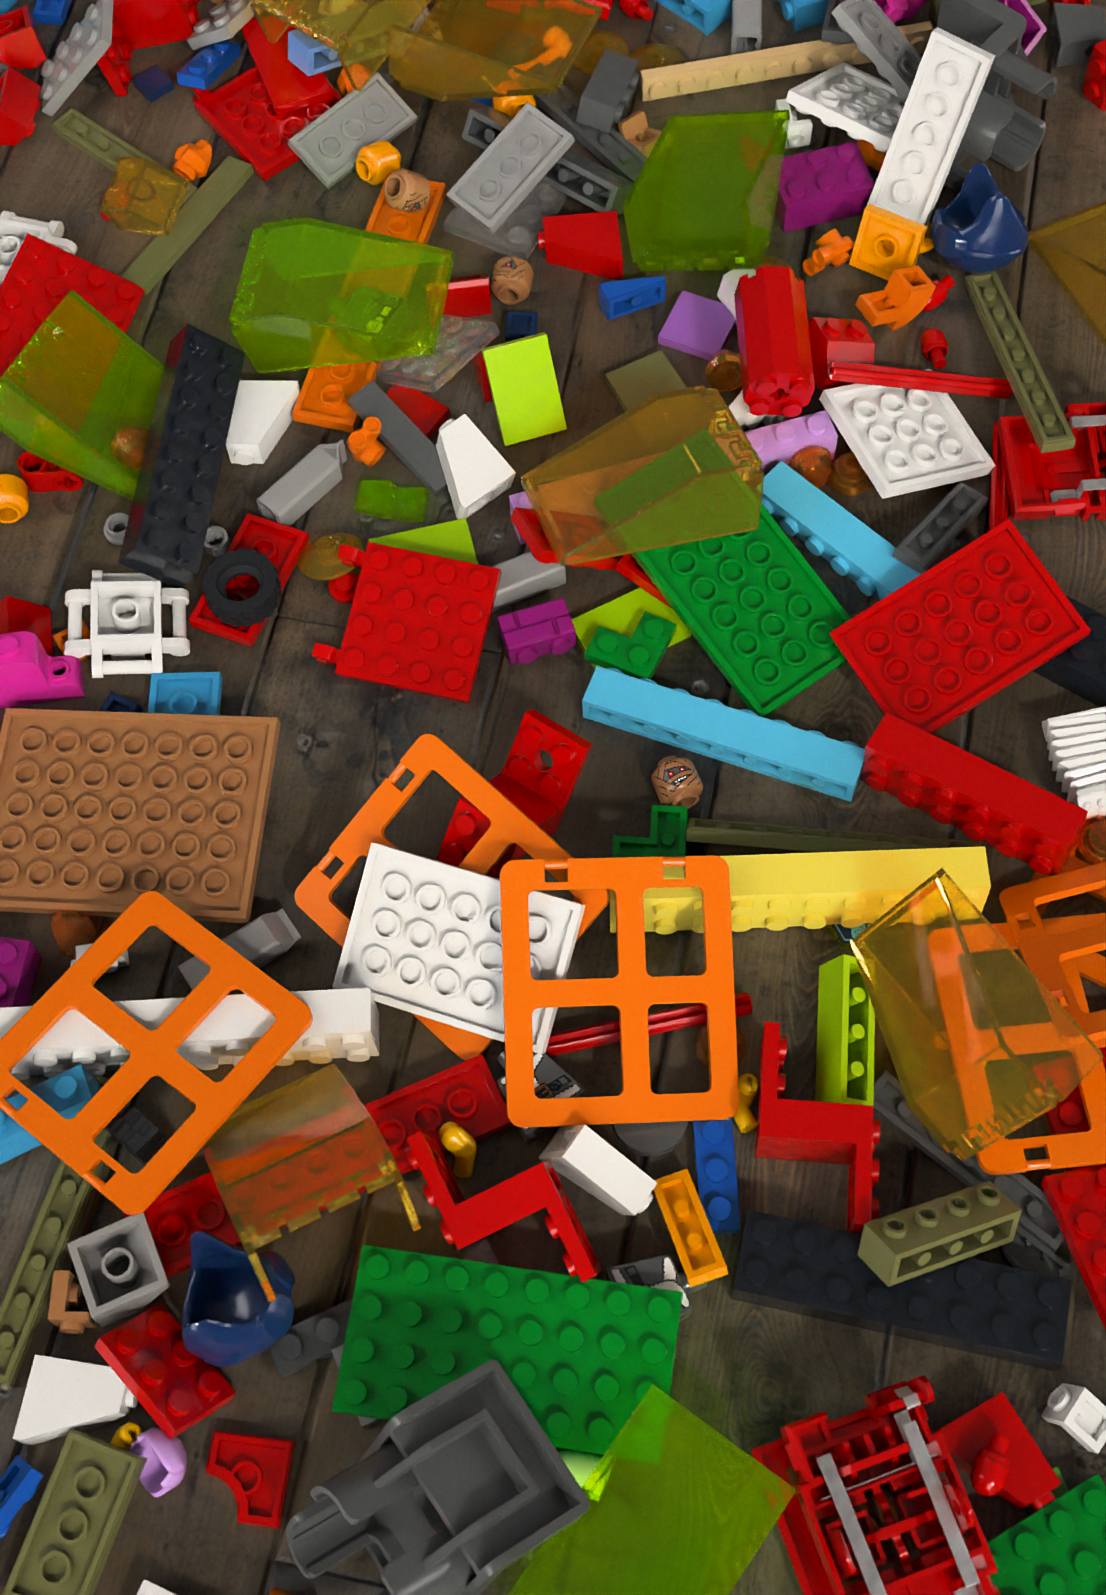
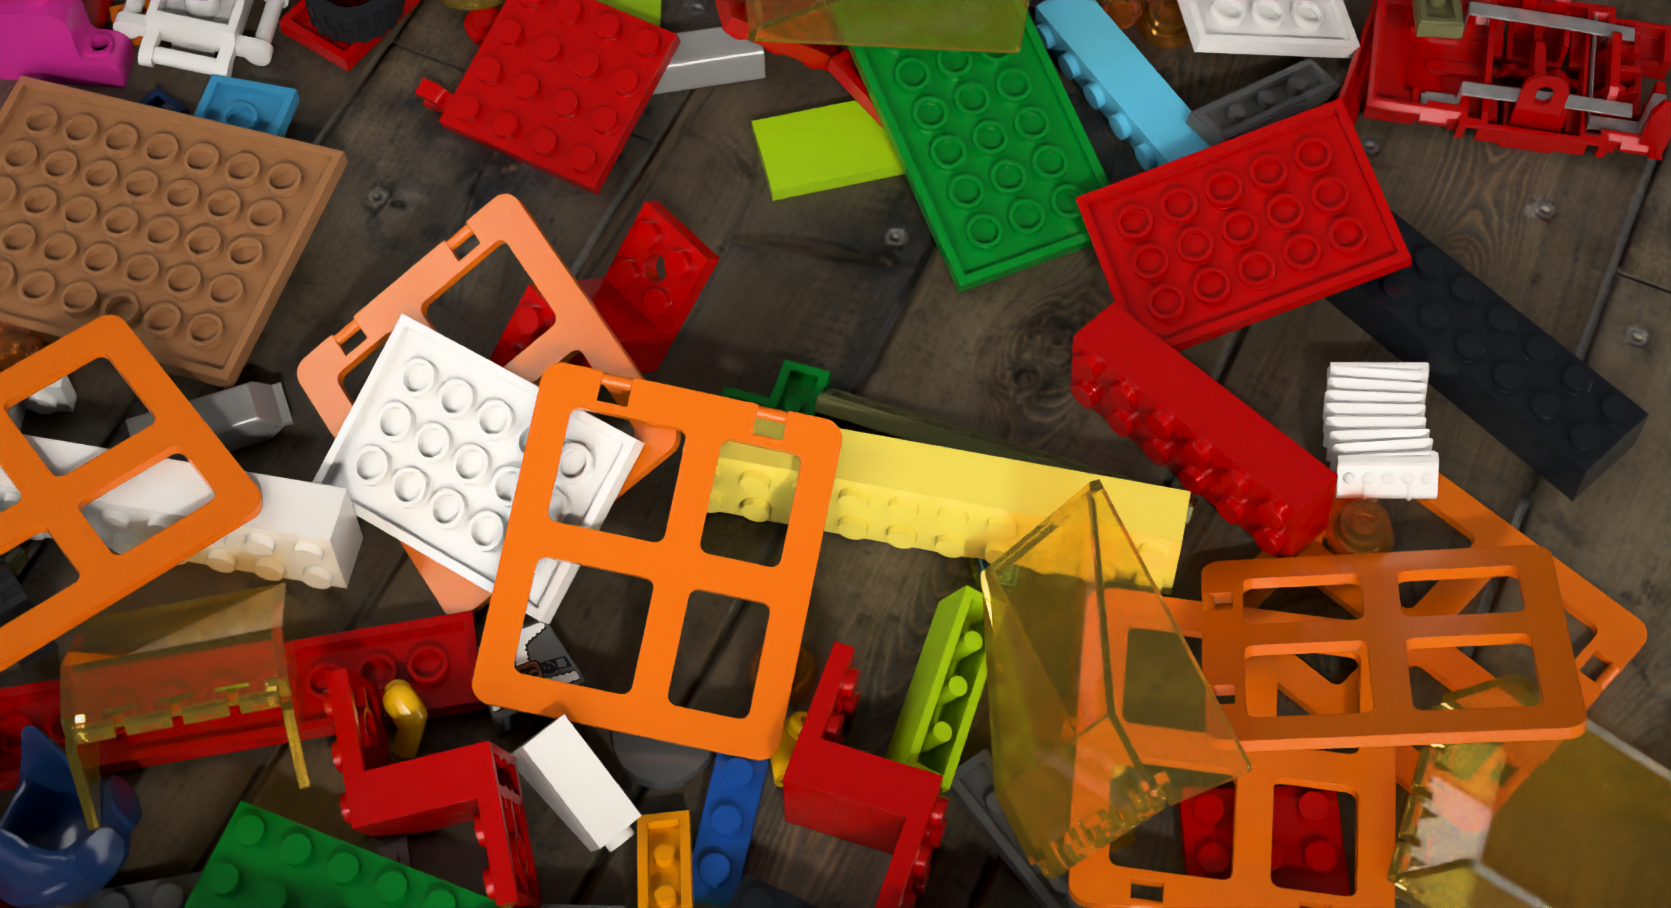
camera: 10 degrees right, 5 degrees down
(537, 631) = (706, 124): magenta brick -> none
(634, 655) = (826, 178): green plate -> none
(658, 1022) = (696, 625): red axle -> none
(677, 782) = (827, 340): medium nougat head -> none
(724, 733) = (906, 294): medium azure brick -> none

